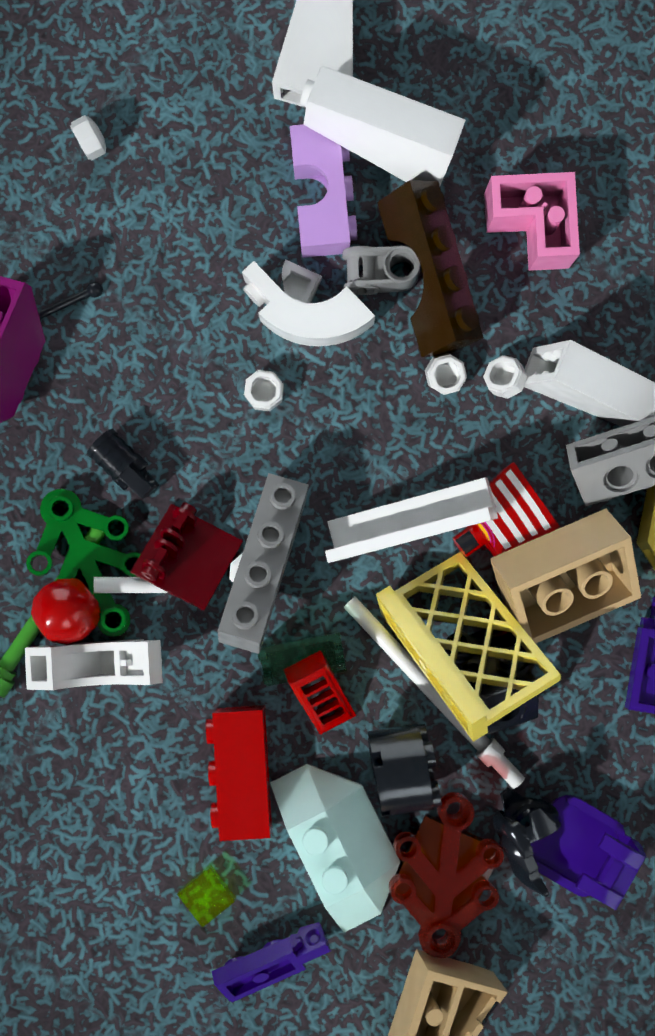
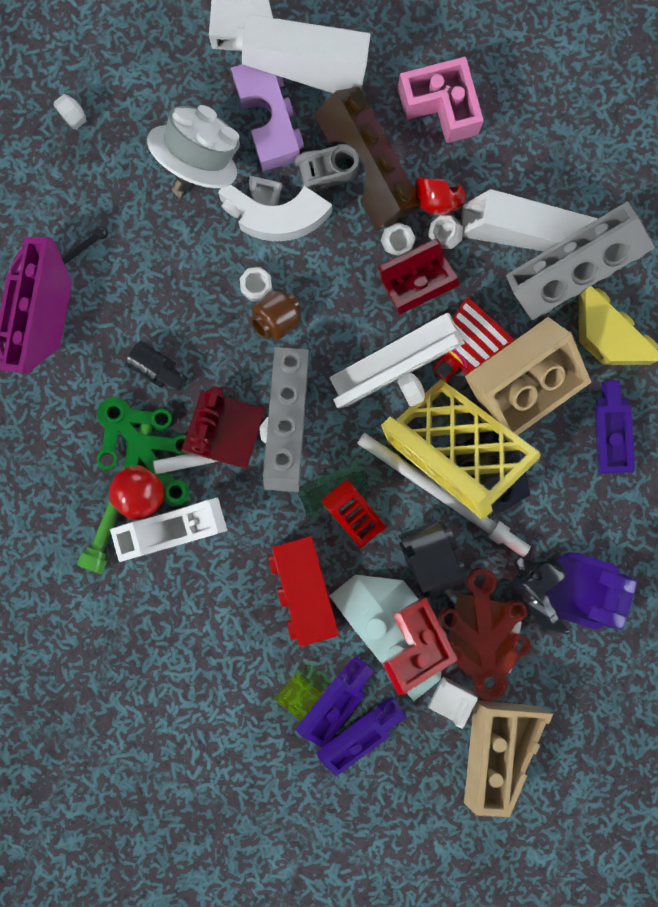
camera: 20 degrees left, 0 degrees up
(226, 213) = (195, 148): none -> white piece
(249, 915) = (336, 703): none -> dark purple hinge
(279, 433) = (275, 315): none -> reddish brown head
(373, 881) = (427, 649): none -> red plate
(391, 945) = (453, 701): none -> white panel
(422, 558) = (412, 389): none -> white tile
(459, 423) = (417, 276): none -> dark red bracket
(505, 332) = (438, 197): none -> red hair

